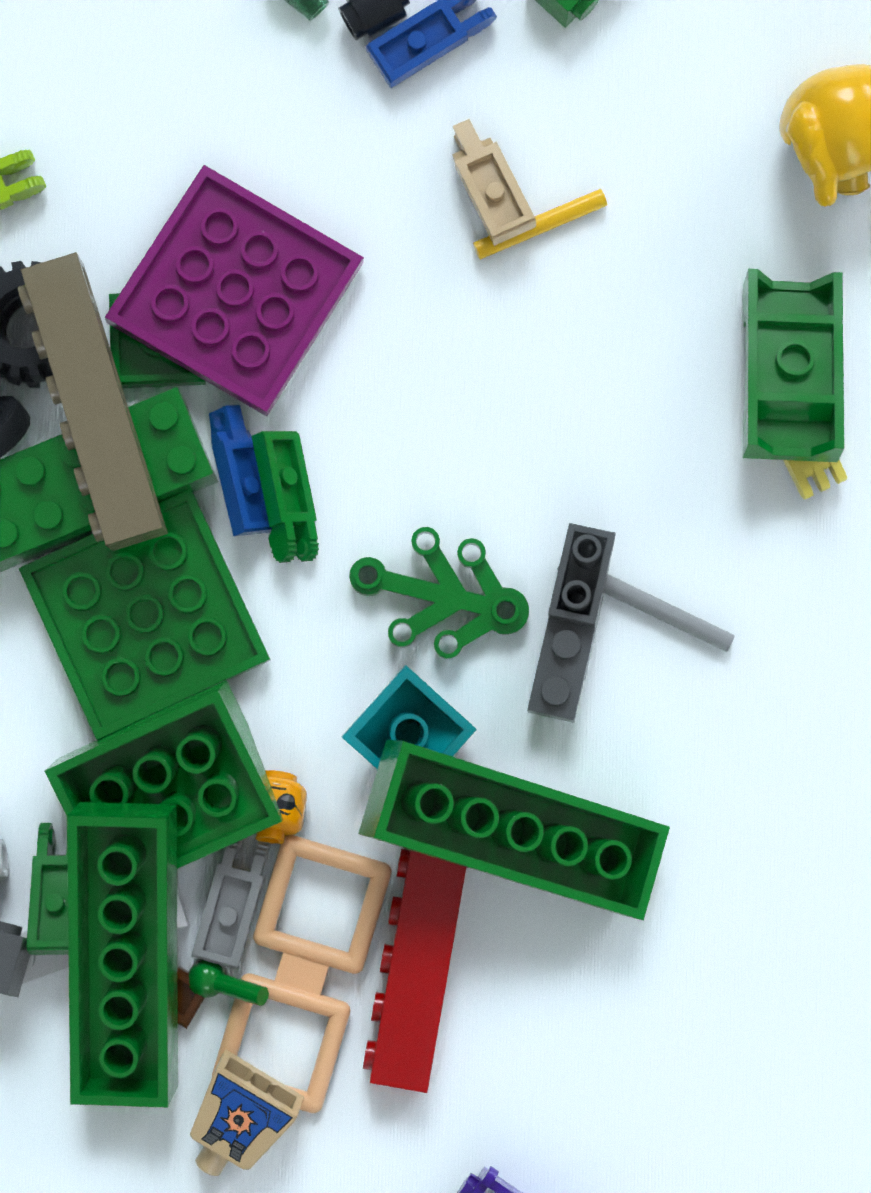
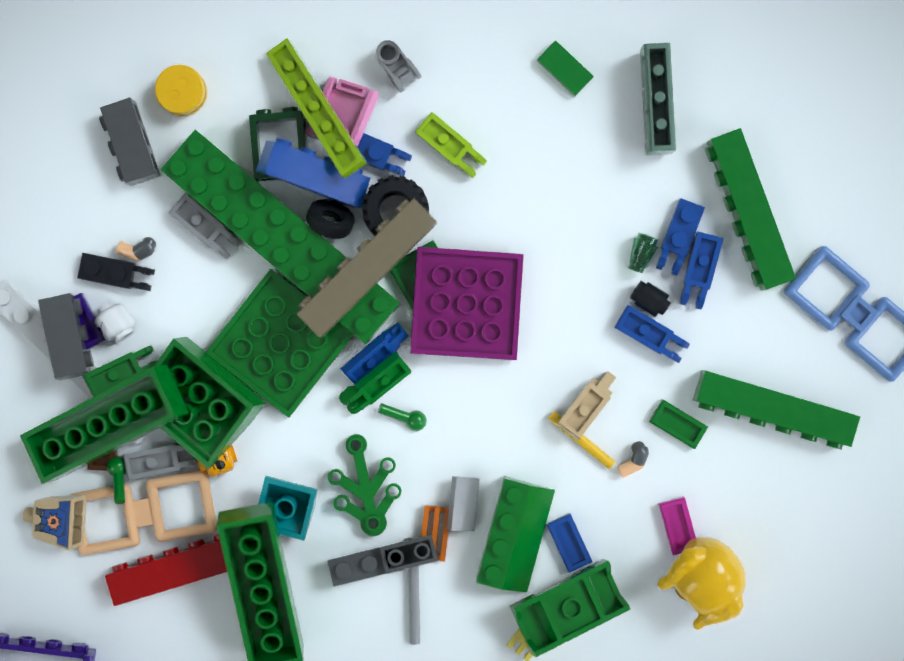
camera: 60 degrees right, 5 degrees up
(377, 467) = (414, 420): none -> green bar
(546, 454) = (463, 503): none -> light grey tile
(570, 501) = (436, 509): none -> orange tile
(591, 65) = (678, 424): none -> green tile
(617, 154) = (637, 461): none -> arm
(634, 398) = (515, 535): none -> green slope
(691, 322) = (569, 542): none -> blue tile
(746, 143) = (677, 523): none -> dark pink tile

